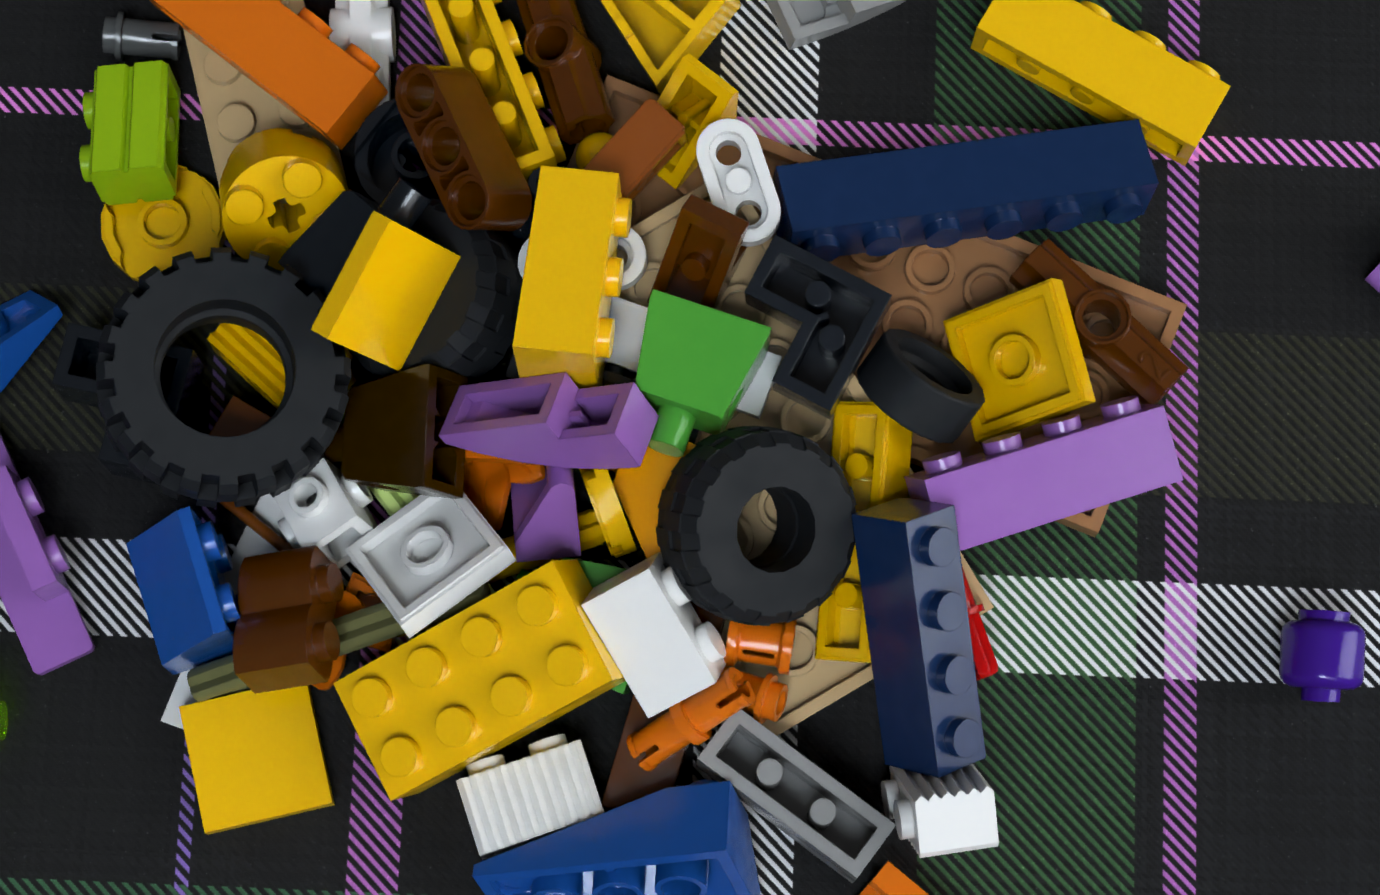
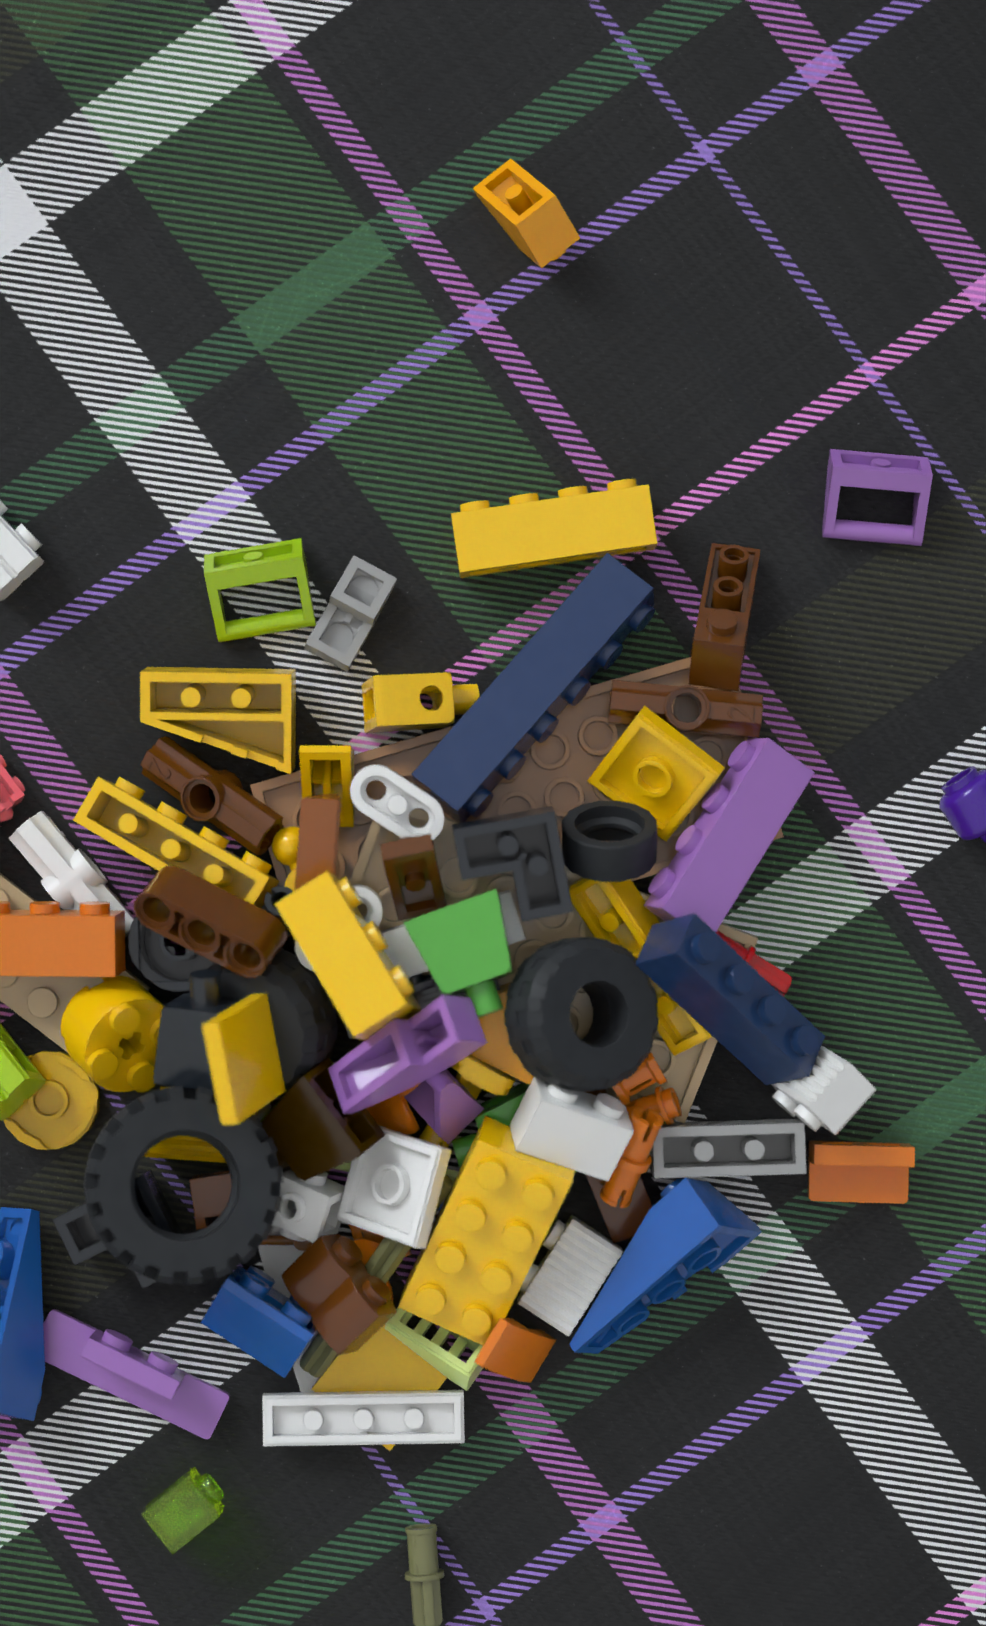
camera: 35 degrees left, 10 degrees up
(206, 775) = (363, 1418): none -> white tile
(336, 789) = (445, 1362): none -> yellowish green slope
(414, 825) = (515, 1350): none -> orange slope
(818, 103) = (395, 703): none -> yellow torso
(1205, 270) = (724, 617): none -> reddish brown slope

